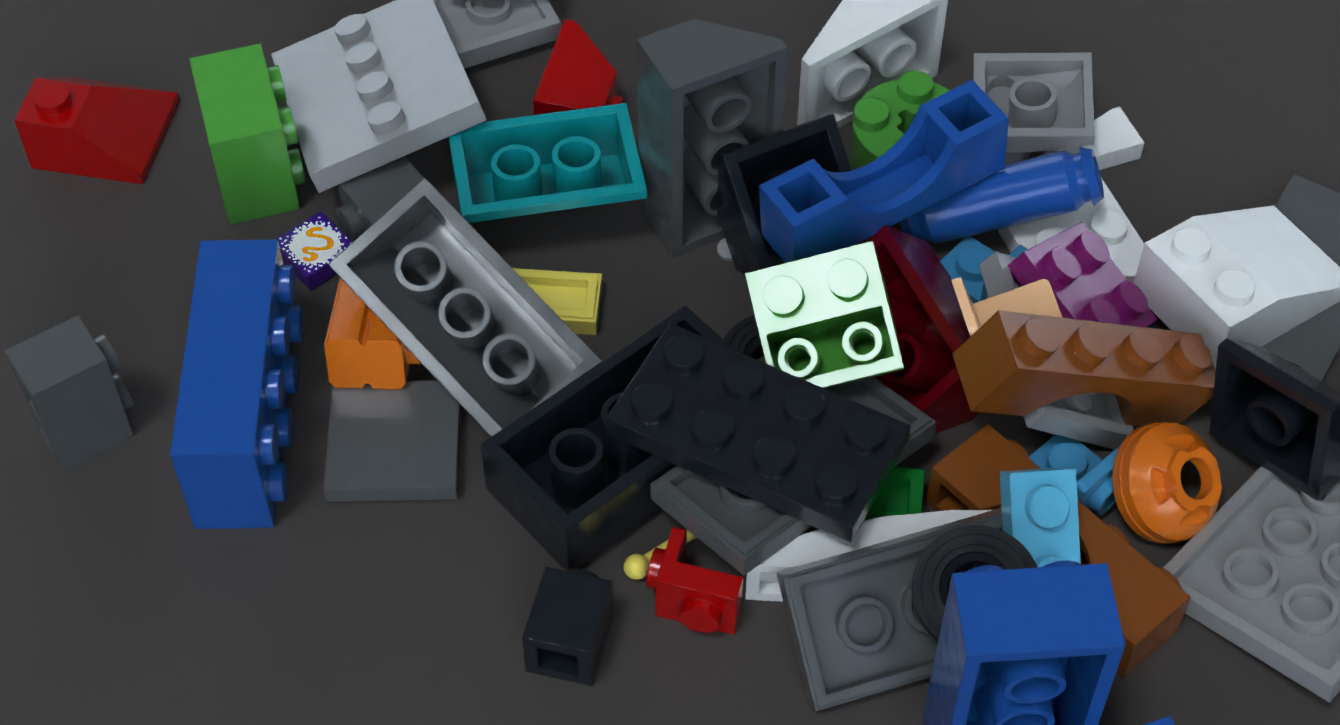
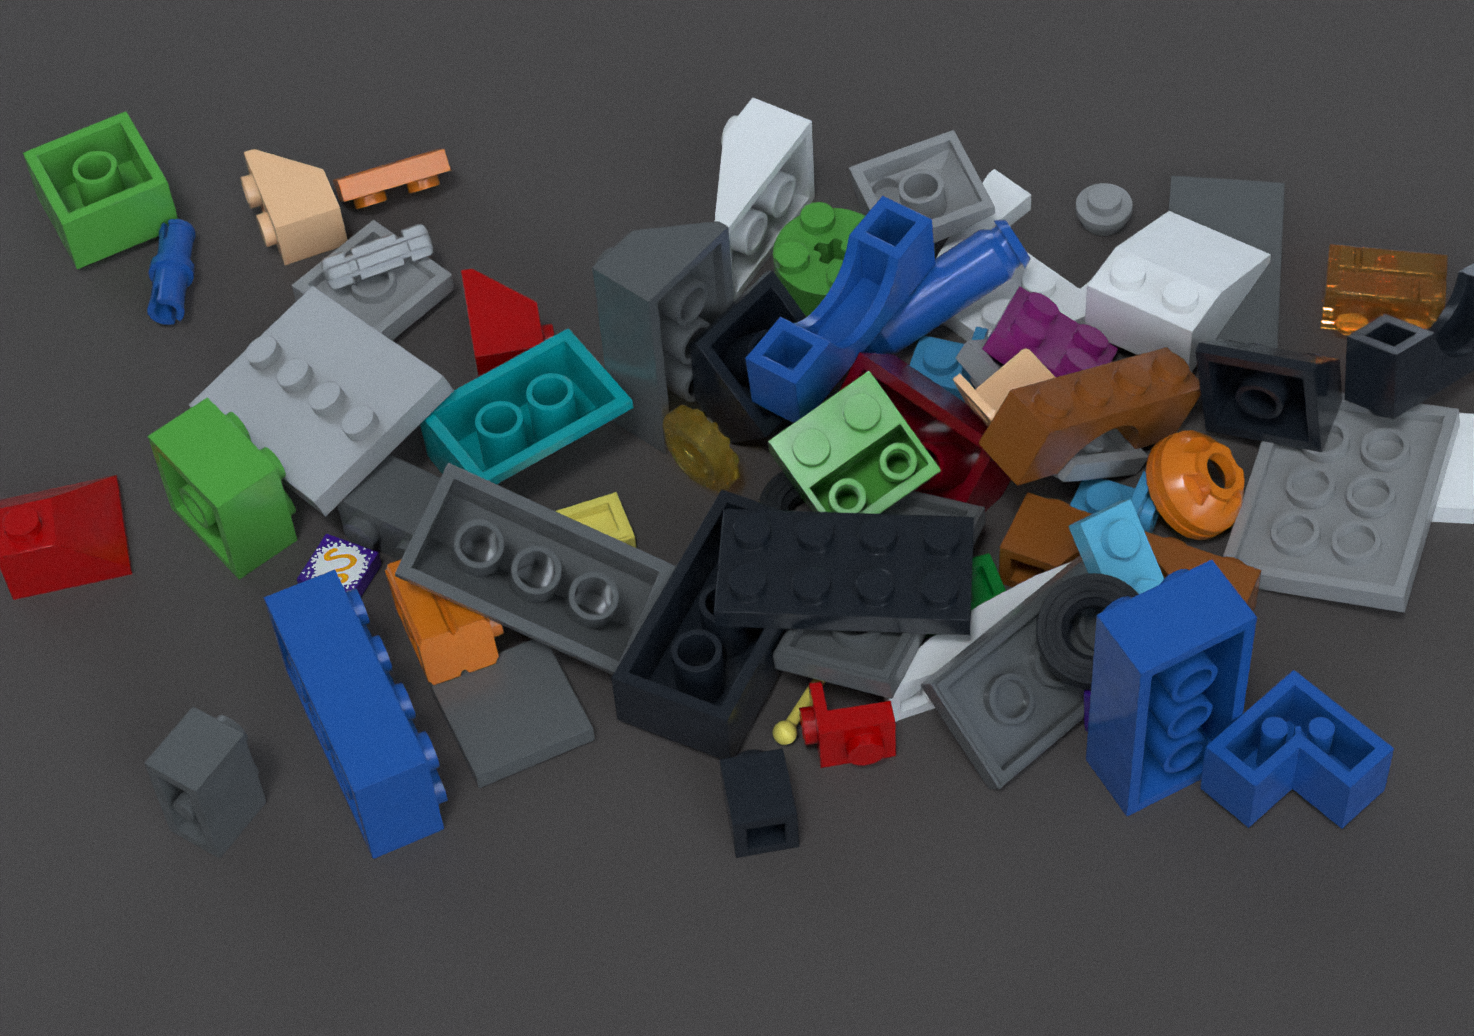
camera: 20 degrees left, 0 degrees up
(696, 261) = (700, 448): none -> clear yellow gear
(1211, 182) = (1103, 208): none -> light grey plate

